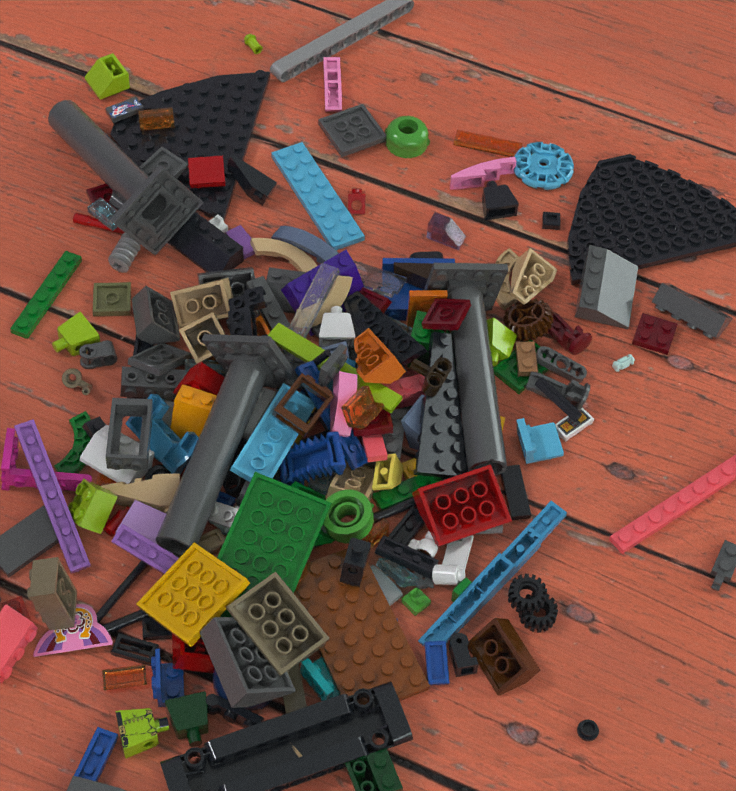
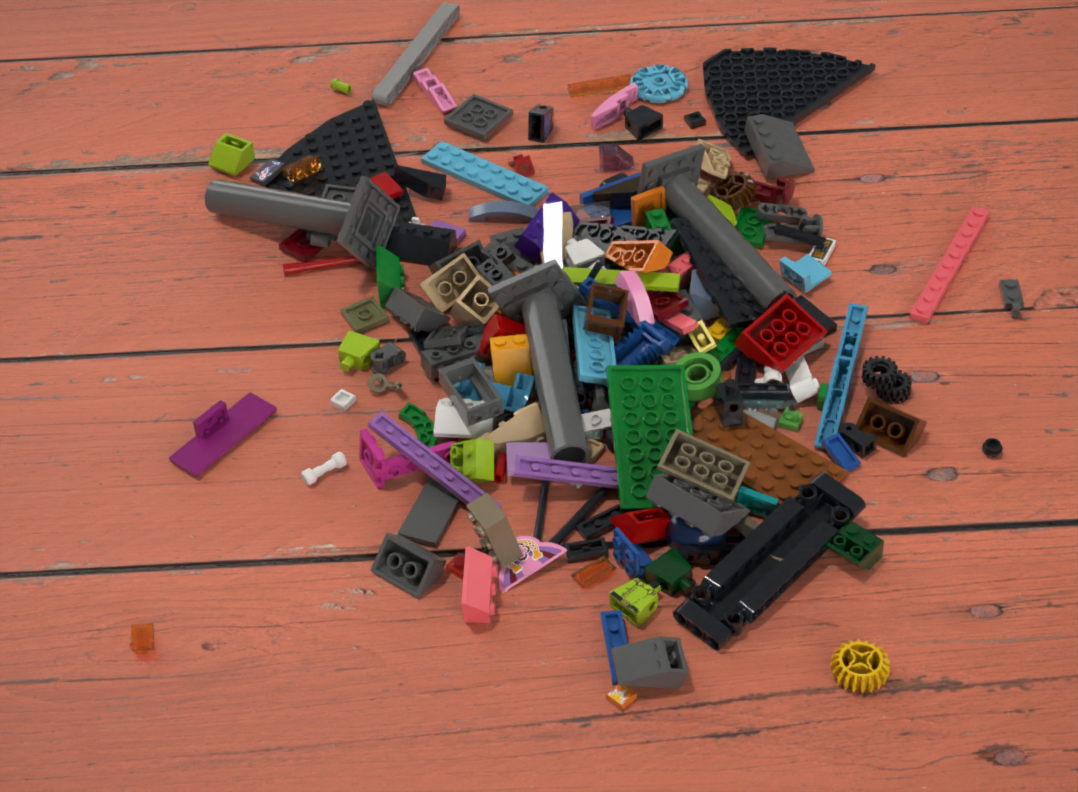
camera: 20 degrees left, 10 degrees down
(33, 380) = (343, 400): none -> white tile
(46, 295) = (303, 335): green plate -> none
(93, 426) = (427, 409): black plate -> none
(103, 212) = (314, 252): clear light blue plate -> none
(124, 253) = (351, 275): light grey piece -> none
(153, 267) = (388, 274): none -> green slope
(192, 593) = (615, 477): yellow plate -> none
(277, 248) = (480, 224): tan tile -> none
(332, 365) = (611, 268): dark grey plate -> none
(361, 408) = (654, 296): clear orange bracket -> none
(401, 162) = (540, 118): none -> black torso
(407, 137) = (526, 98): bright green piece -> none
(432, 374) = (698, 247): dark brown beam -> none
(446, 314) = (675, 201): dark red plate -> none
(526, 358) = (750, 219): medium nougat plate -> none
(623, 362) = (829, 194): light aqua piece -> none
(654, 333) = (838, 165): dark red plate -> none
(691, 309) = (856, 136): dark grey slope -> none

